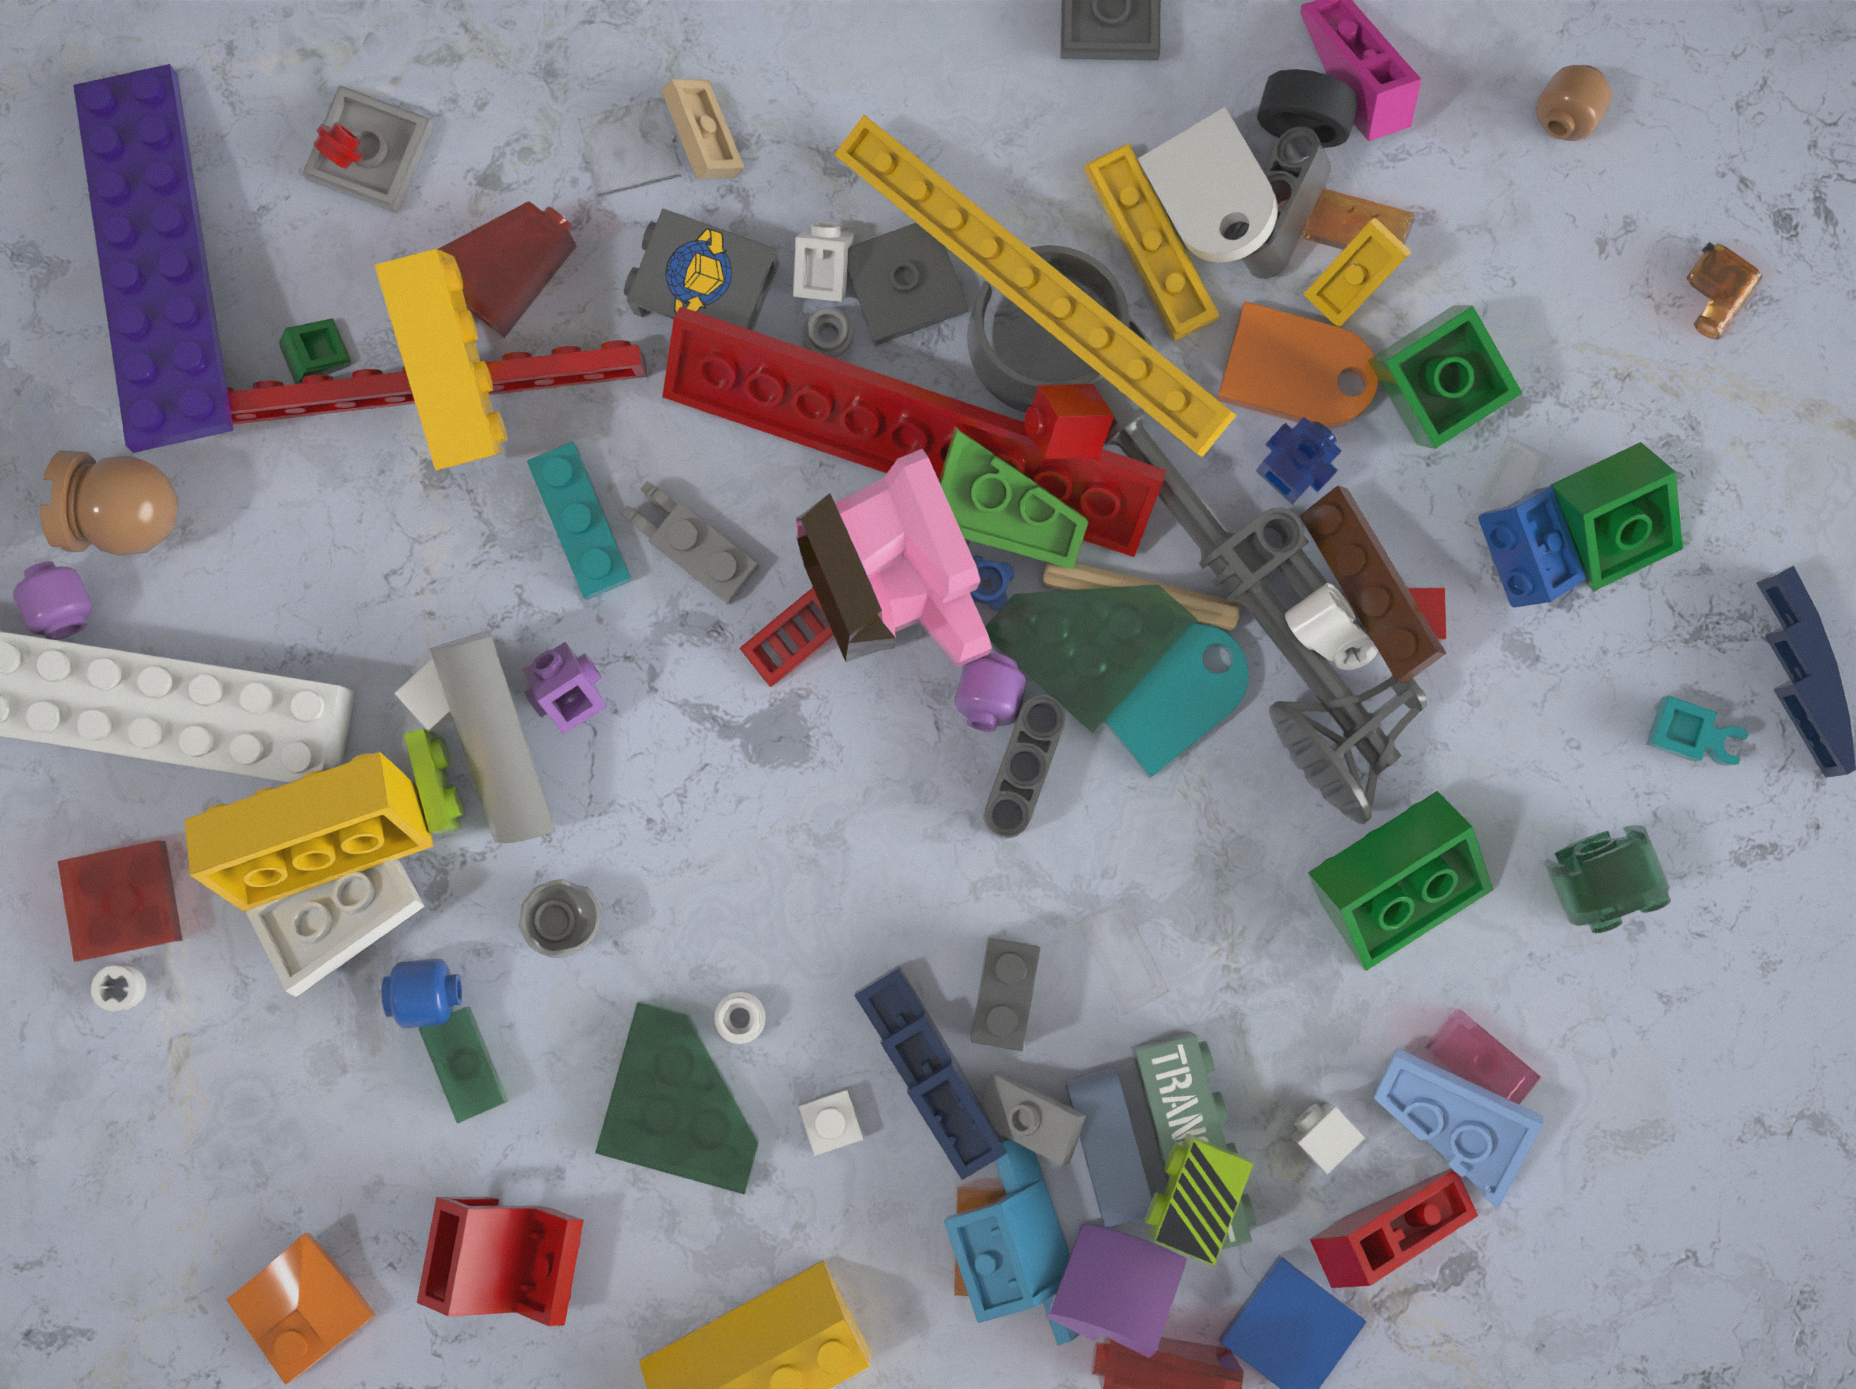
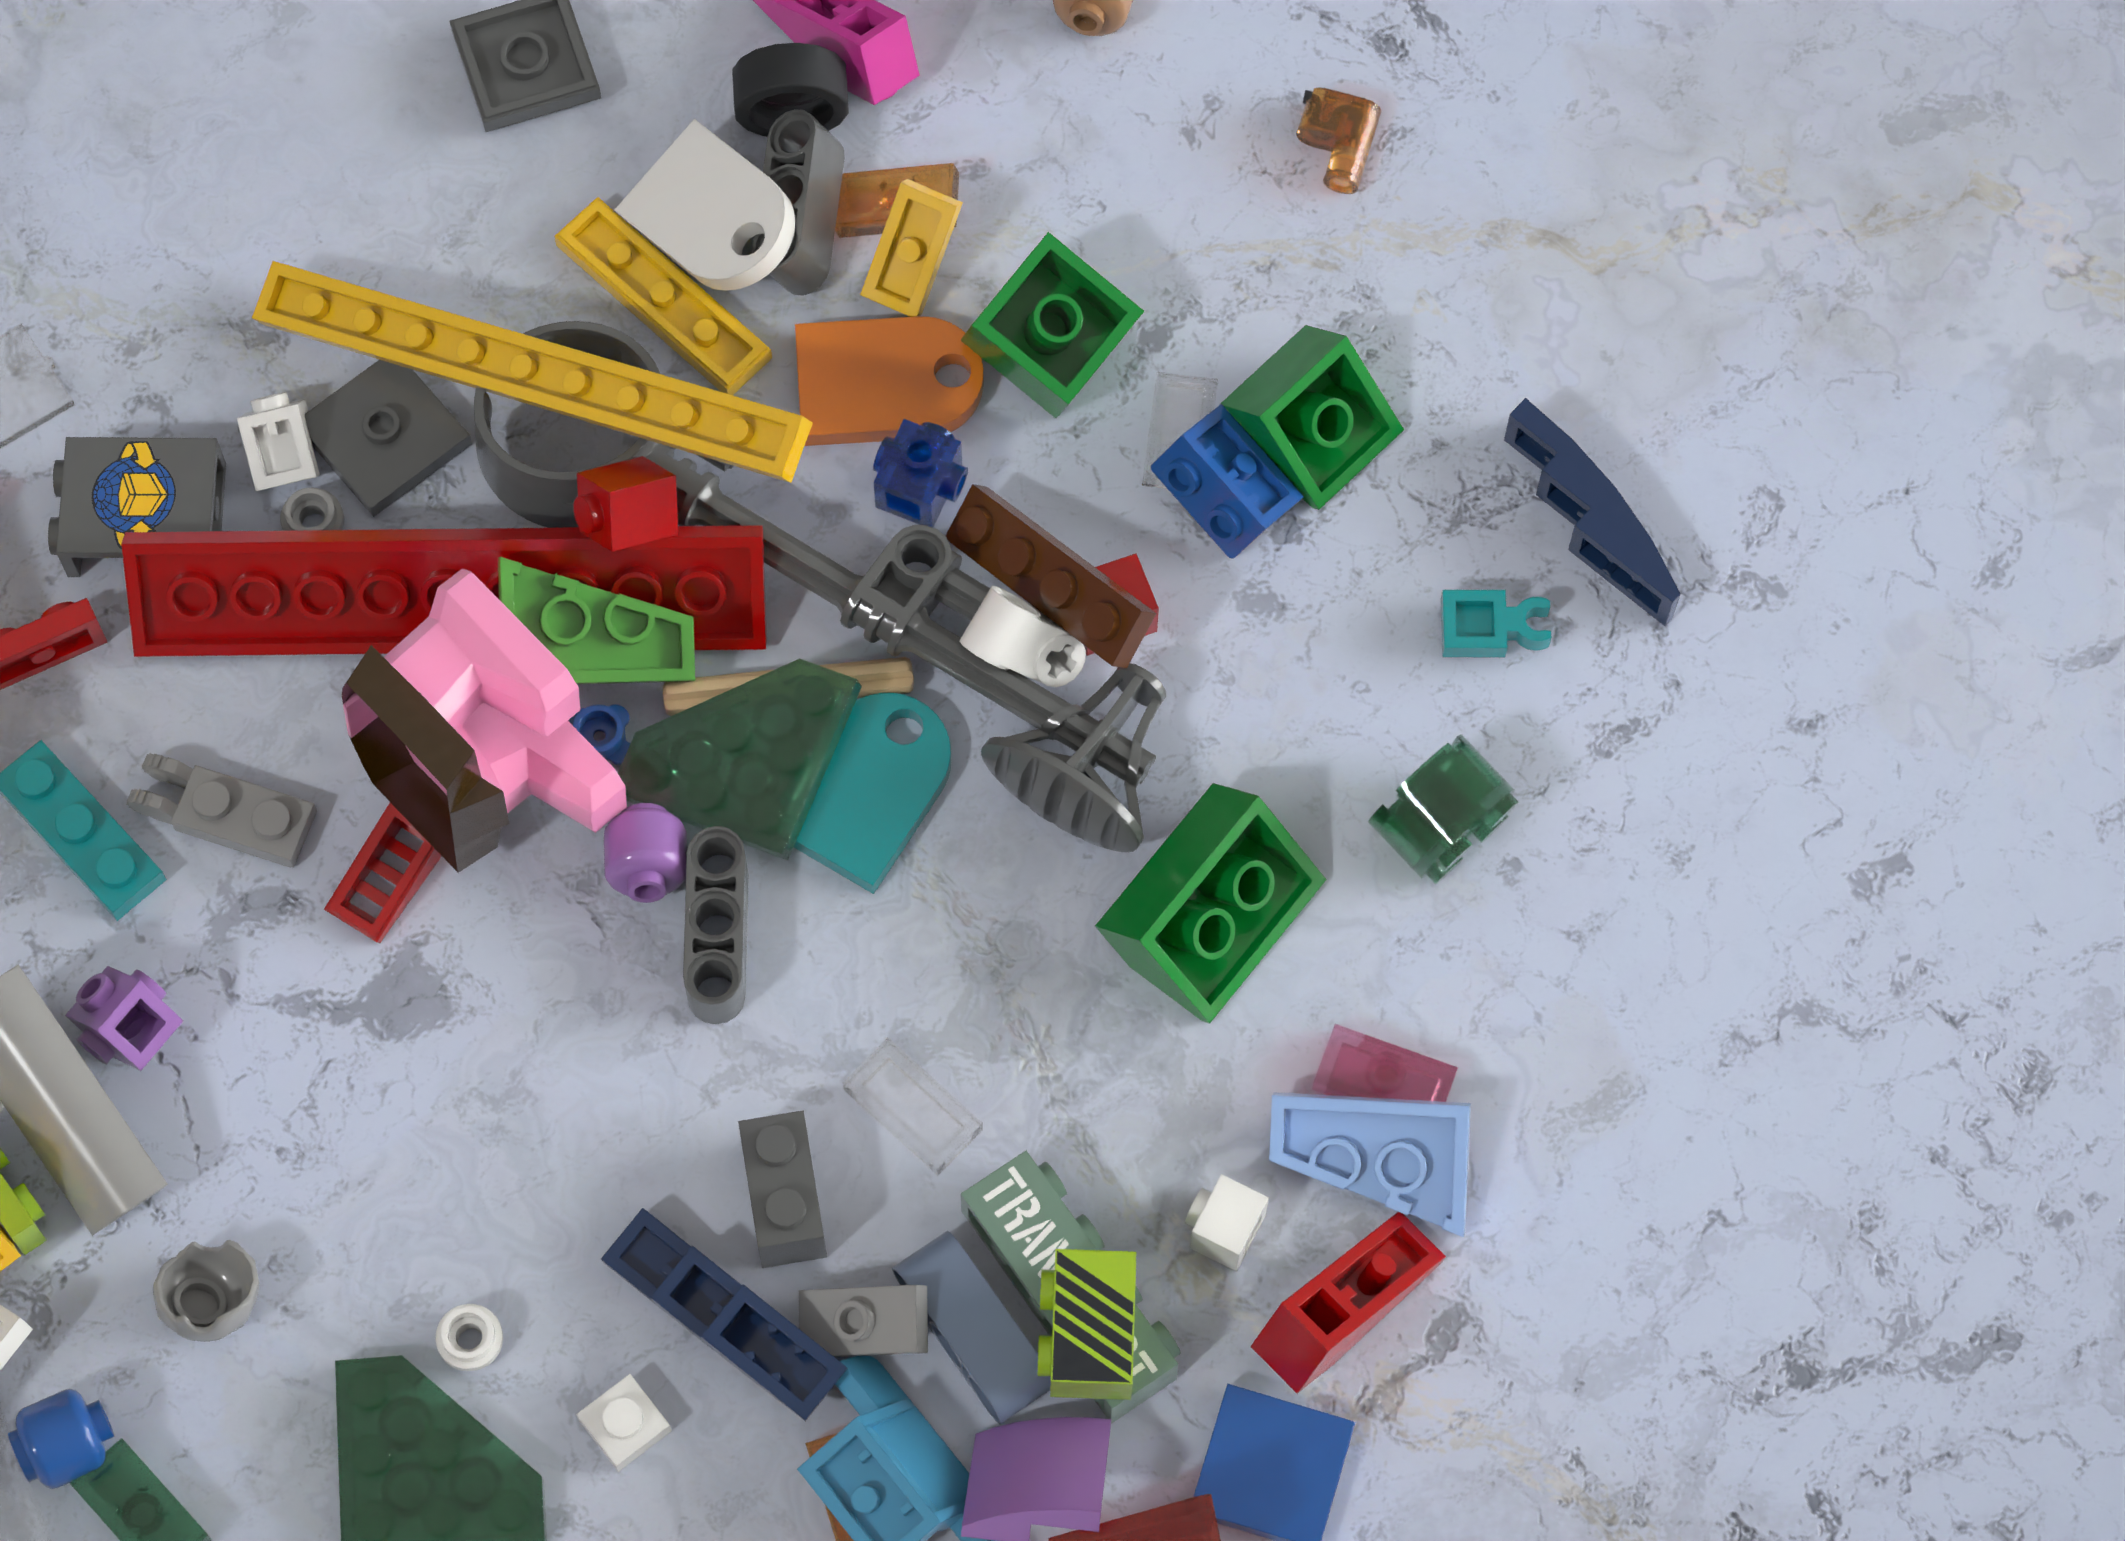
camera: 25 degrees left, 15 degrees down
(702, 128) = (84, 340): tan plate -> none

